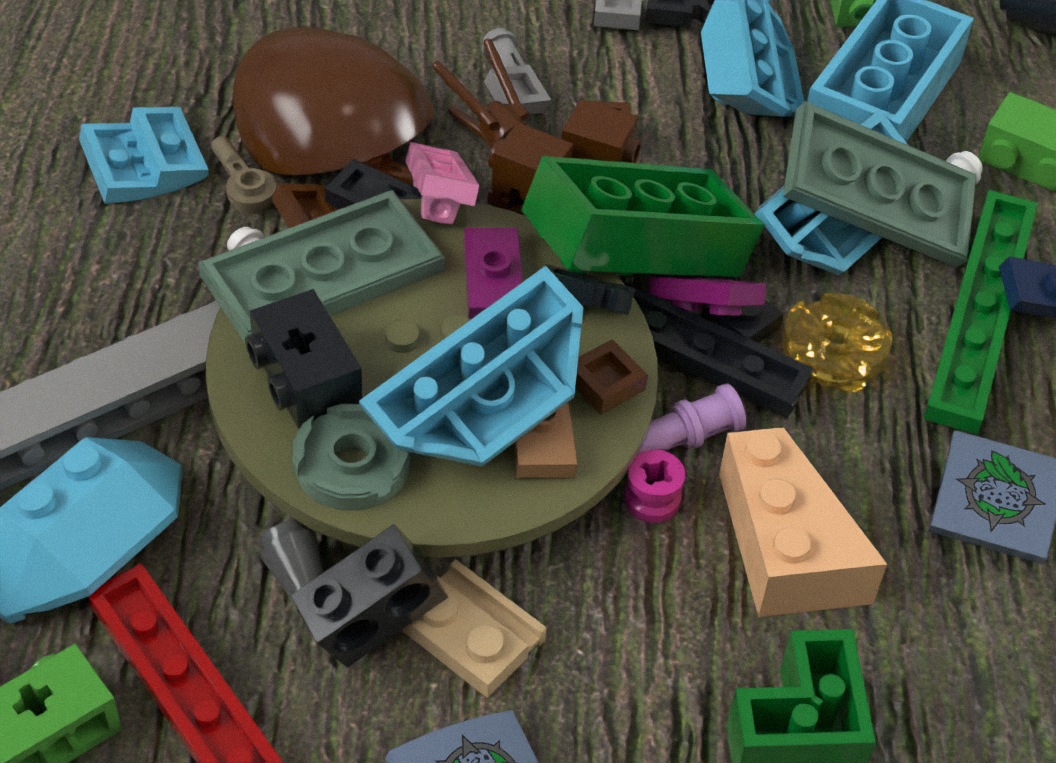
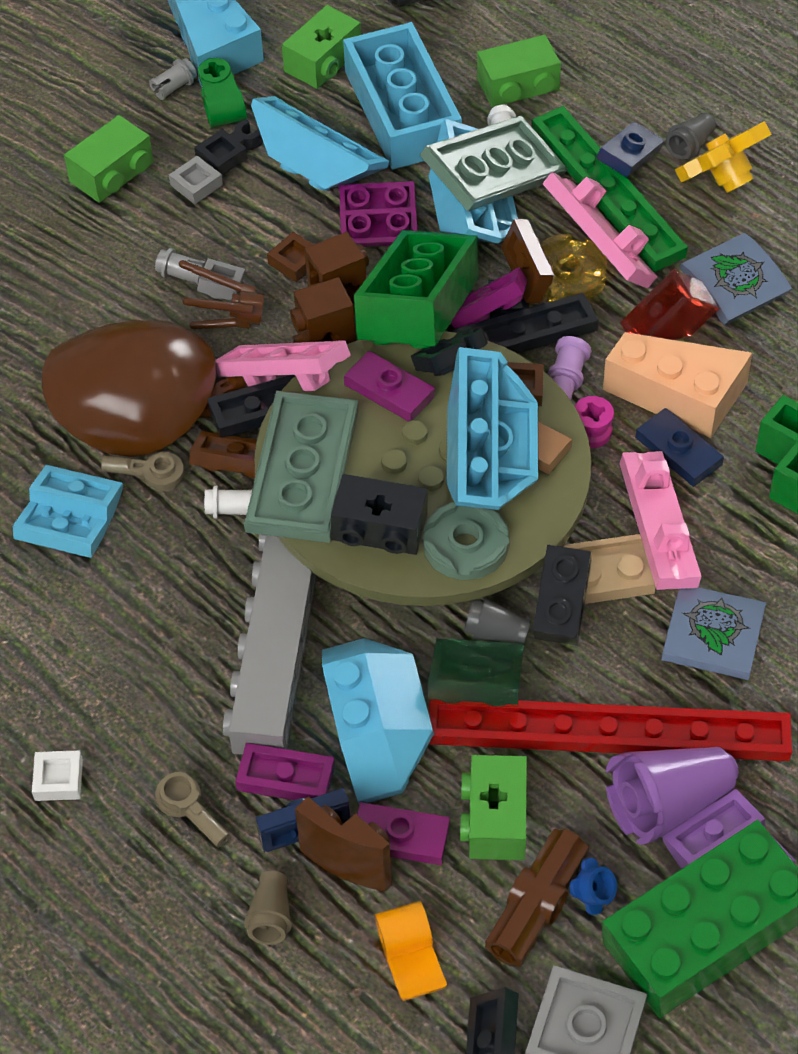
camera: 45 degrees left, 5 degrees up
(204, 583) = (476, 672): none -> clear green plate
(576, 633) = (660, 520): none -> bright pink hinge
(708, 592) = (681, 446): none -> dark blue plate
(735, 148) = (377, 211): none -> magenta slope
(782, 305) = (524, 251): none -> reddish brown plate
(880, 461) = (672, 308): none -> clear red slope
(910, 349) = (620, 248): none -> bright pink hinge

